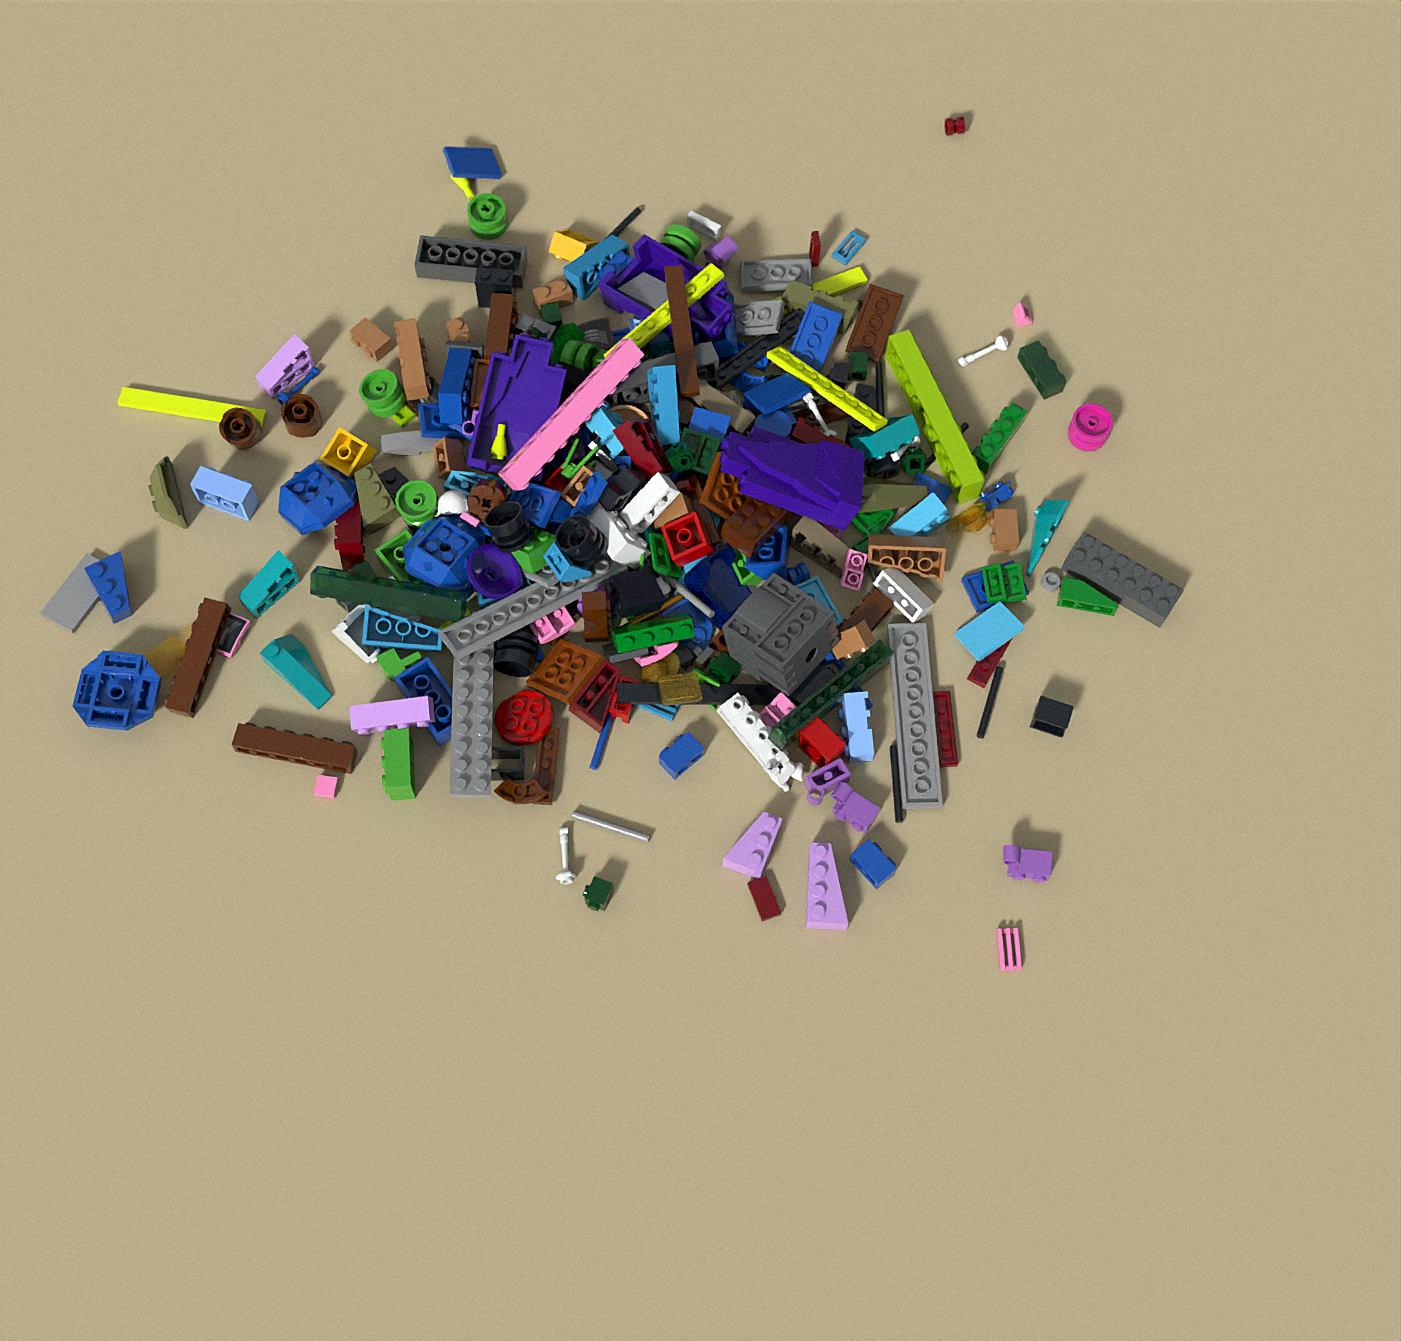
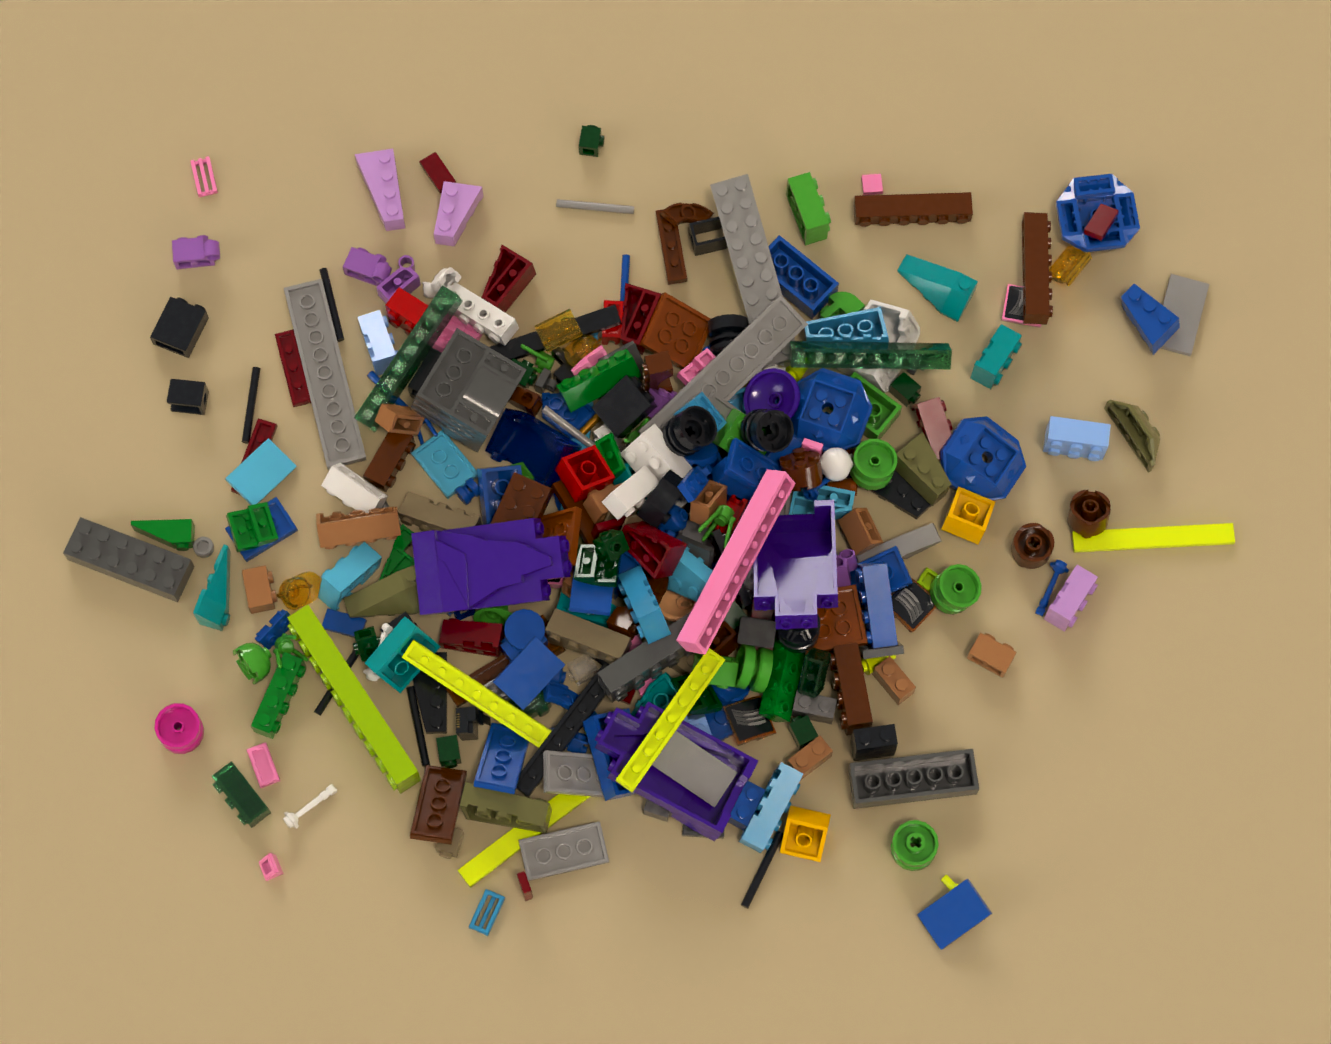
camera: 170 degrees right, 5 degrees up
(117, 675) = (1101, 222): none -> dark red tile
(392, 715) = (828, 242): lavender wedge -> none
(412, 359) = (935, 632): medium nougat wedge -> none
(499, 446) = (808, 538): neon yellow cone -> none
(524, 717) = (704, 284): red tile -> none
(566, 875) = (624, 150): white piece -> none
(681, 241) = (682, 849): bright green wheel -> none
(681, 331) = (645, 694): reddish brown tile -> none
(681, 755) = (544, 281): blue brick -> none
(704, 225) = (661, 898): white plate -> none
(716, 761) = (508, 279): none -> dark red wedge
(720, 252) = (632, 852): medium lavender hinge -> none
(812, 405) = (465, 659): white piece -> none
(853, 570) = (410, 495): bright pink slope -> none
(873, 863) = (341, 221): blue brick -> none
(990, 476) = (284, 644): none -> bright green plant
(1017, 466) = (253, 661): none -> bright green cylinder
(1019, 391) = (263, 765): none -> bright pink tile
(1051, 789) = (179, 326): none -> black brick

